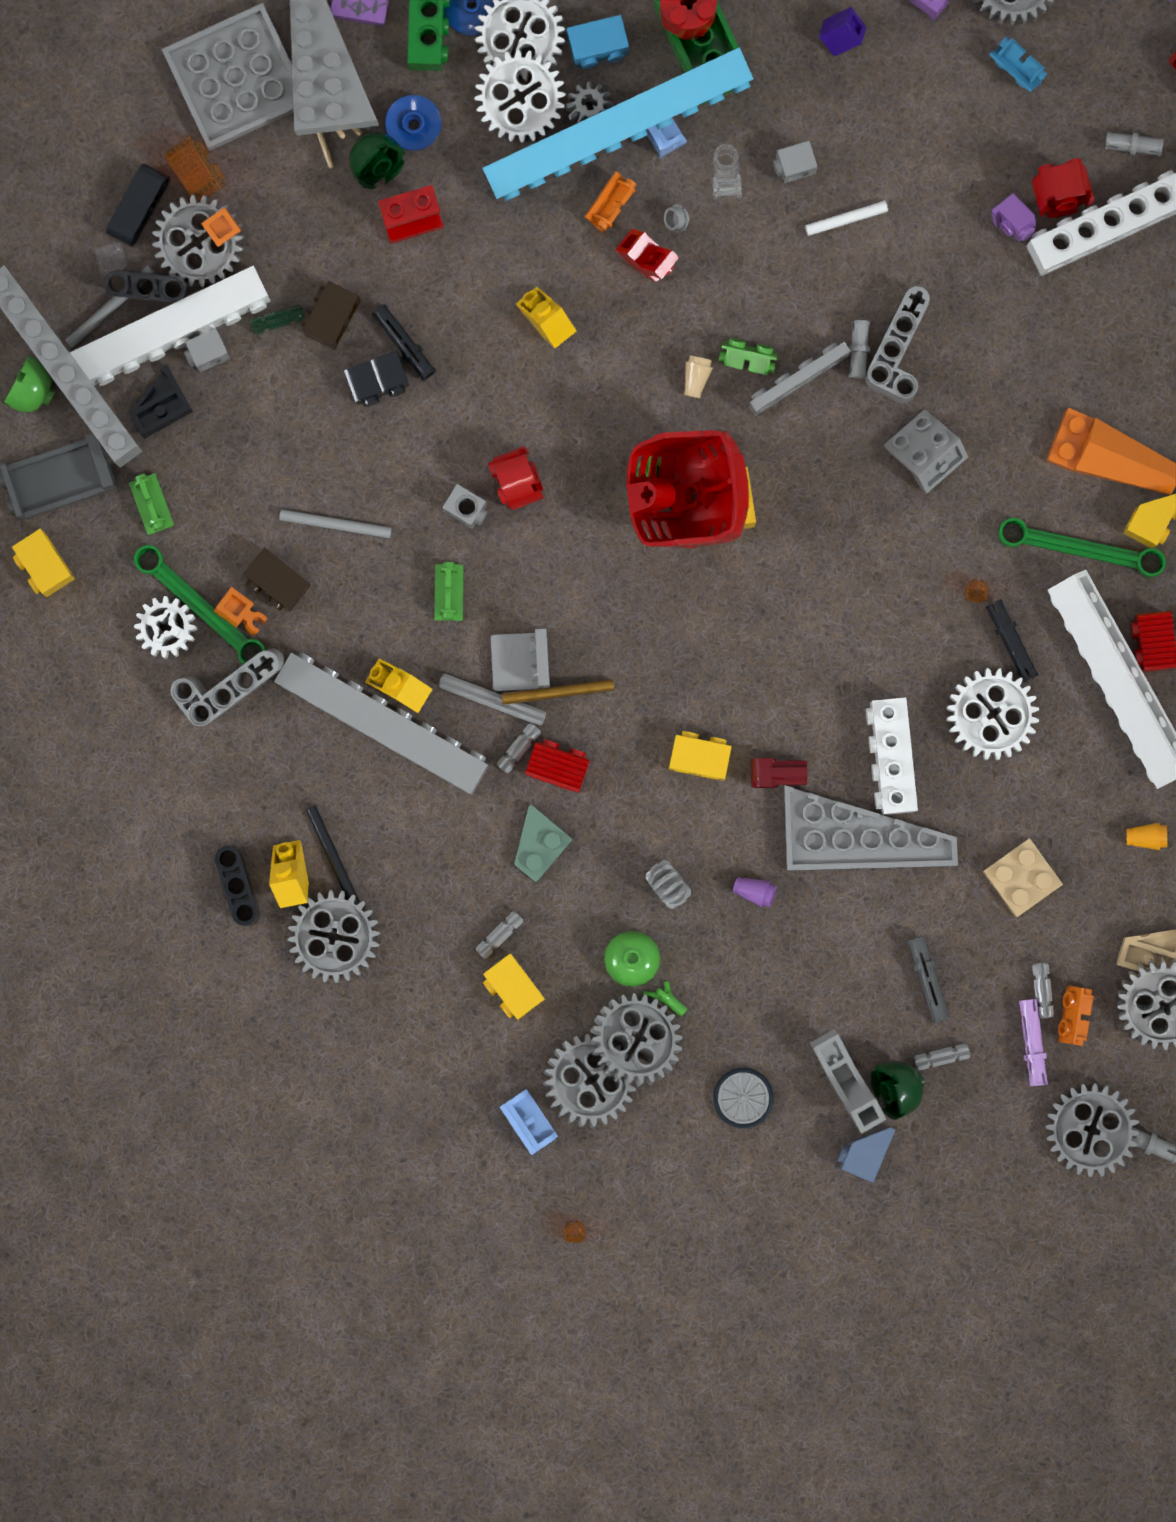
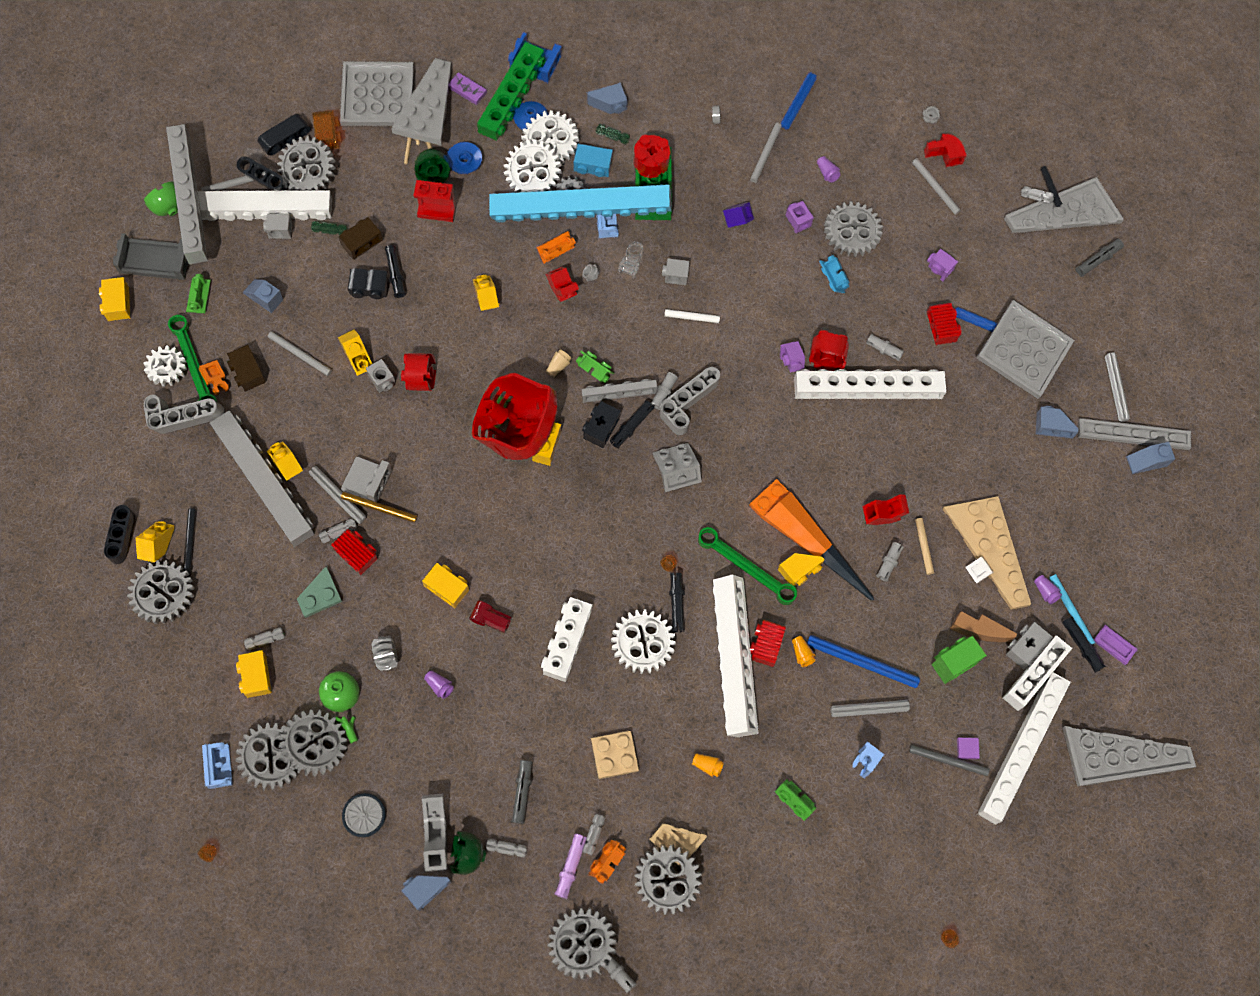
camera: 15 degrees right, 15 degrees down
(160, 405) = (234, 244): black wing -> none
(221, 226) = (320, 158): orange tile -> none
(240, 461) = (264, 294): none -> sand blue slope
(412, 487) = (355, 351): none -> yellow slope
(448, 592) = (345, 421): bright green hinge -> none
(805, 424) = (600, 434): none -> black brick
(836, 426) = (627, 430): none -> black pin
(842, 836) = (512, 676): light grey wing -> none

